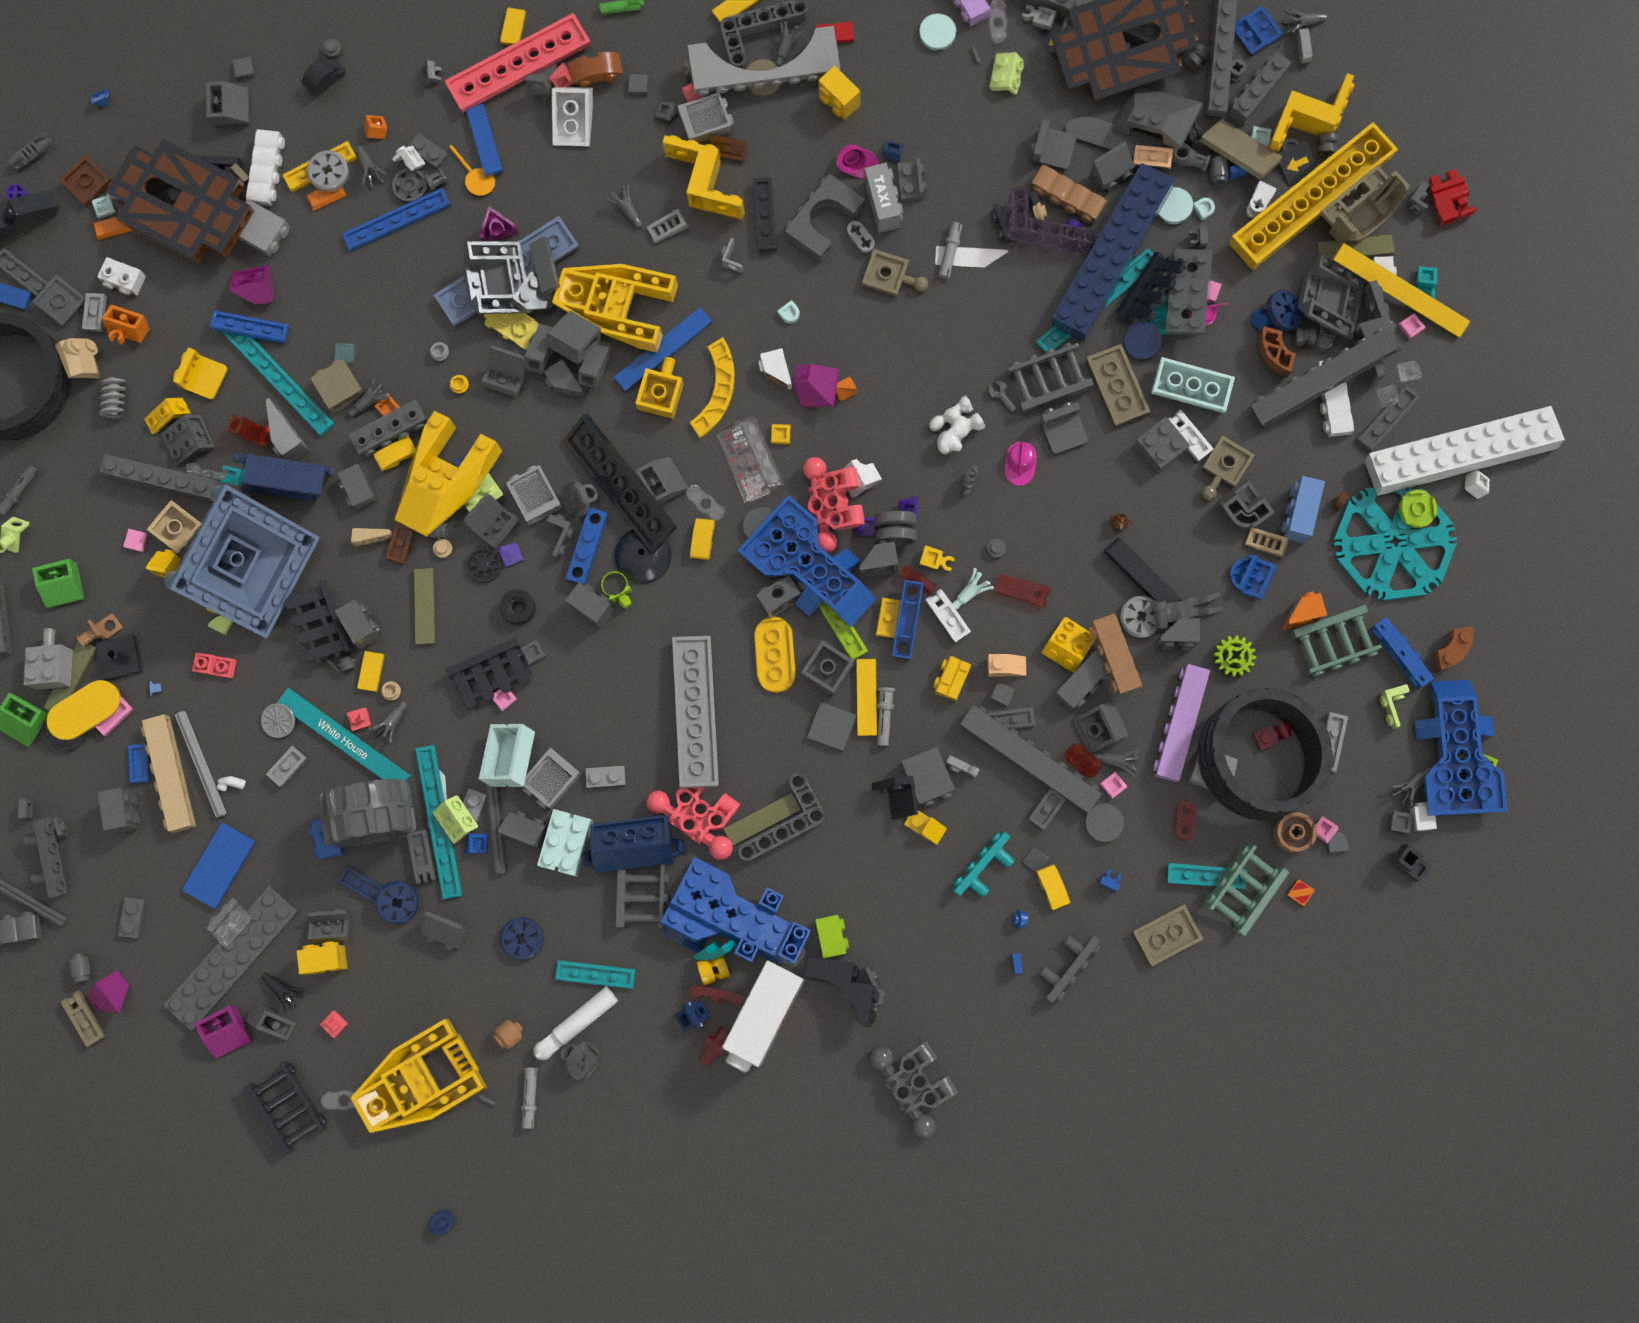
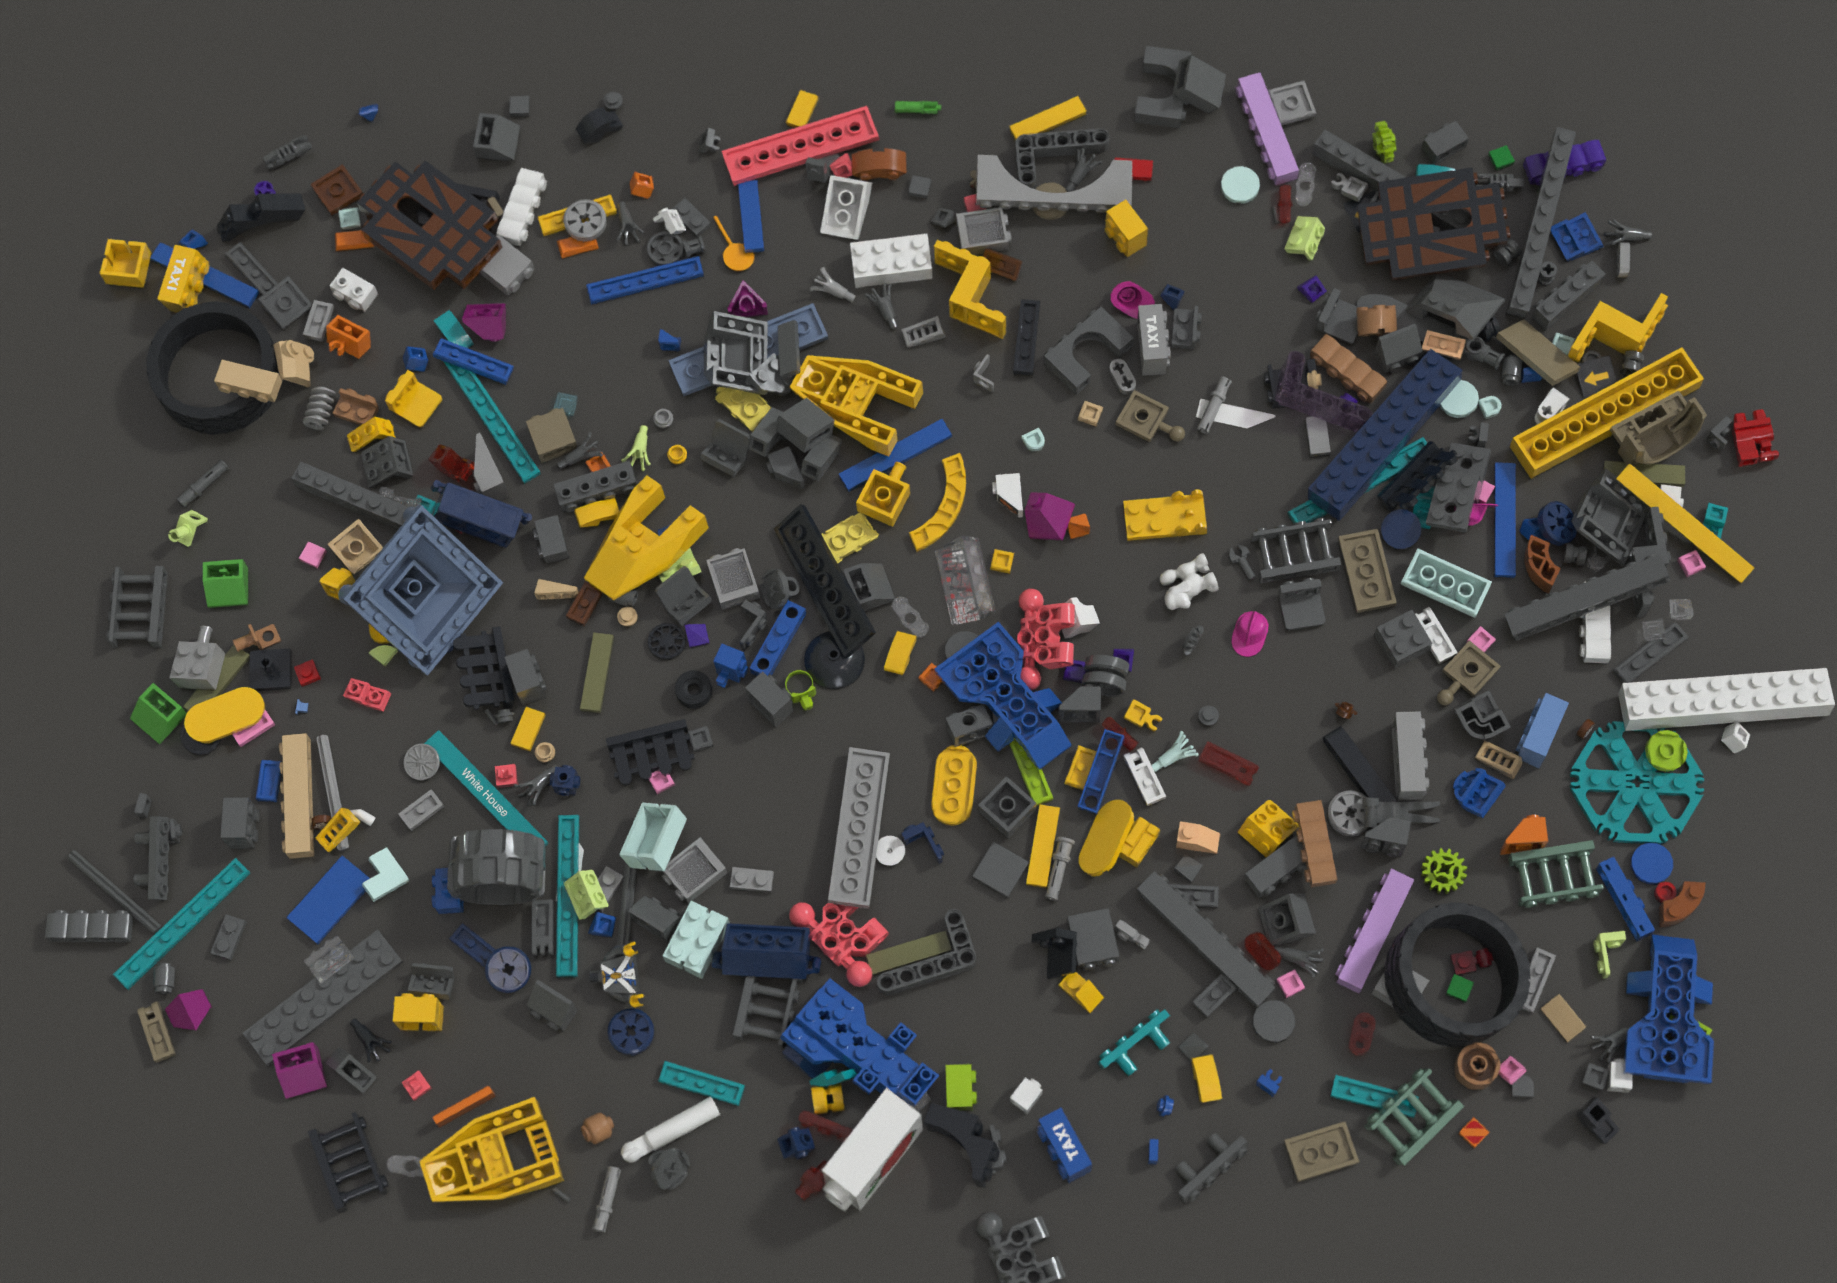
camera: 10 degrees right, 10 degrees down
(37, 387) = (248, 381): none -> tan brick
(85, 913) = (181, 924): none -> teal tile
(147, 391) = (355, 407): none -> medium nougat bracket
(153, 654) = (307, 673): none -> red plate
(194, 333) = (415, 359): none -> blue slope
(196, 794) = (320, 821): none -> reddish brown tile
(220, 790) = (342, 833): none -> yellow slope
(224, 300) = (453, 330): none -> teal slope
(269, 836) = (389, 875): none -> light aqua tile
(381, 1036) = (463, 1106): none -> orange tile
(419, 720) = (568, 786): none -> dark blue brick
(422, 384) = (639, 448): none -> yellowish green piece
(430, 277) = (669, 342): none -> blue slope
(501, 890) = (619, 974): none -> torso
(547, 578) = (730, 665): none -> blue brick
(573, 196) = (832, 287): none -> light grey piece
(624, 161) = (891, 260): none -> white brick
(634, 435) = (849, 536): none -> light yellow piece
(727, 726) = (890, 850): none -> white piece
(734, 557) = (930, 678): none -> orange tile
(745, 707) = (916, 832): none -> dark blue bracket
(837, 278) = (1090, 413): none -> tan tile
(893, 931) = (1026, 1095): none -> white brick
(923, 365) = (1165, 516): none -> yellow hinge
(923, 680) = (1106, 838): none -> yellow tile
(936, 974) = (1064, 1146): none -> blue brick
(982, 43) = (1285, 204): none -> clear red axle
(1021, 122) = (1312, 289): none -> dark purple slope
(1050, 264) = (1317, 436): none -> light grey tile
(1087, 143) = (1376, 320): none -> medium nougat brick
(1186, 556) = (1409, 756): none -> light grey brick
(1233, 431) = (1482, 639): none -> bright pink tile
(1235, 314) = (1504, 520): none -> blue tile
(1266, 762) = (1459, 988): none -> green tile
(1363, 773) = (1563, 1018): none -> tan slope
(1420, 615) = (1651, 863): none -> blue tile
(1436, 640) = (1665, 891): none -> red tile

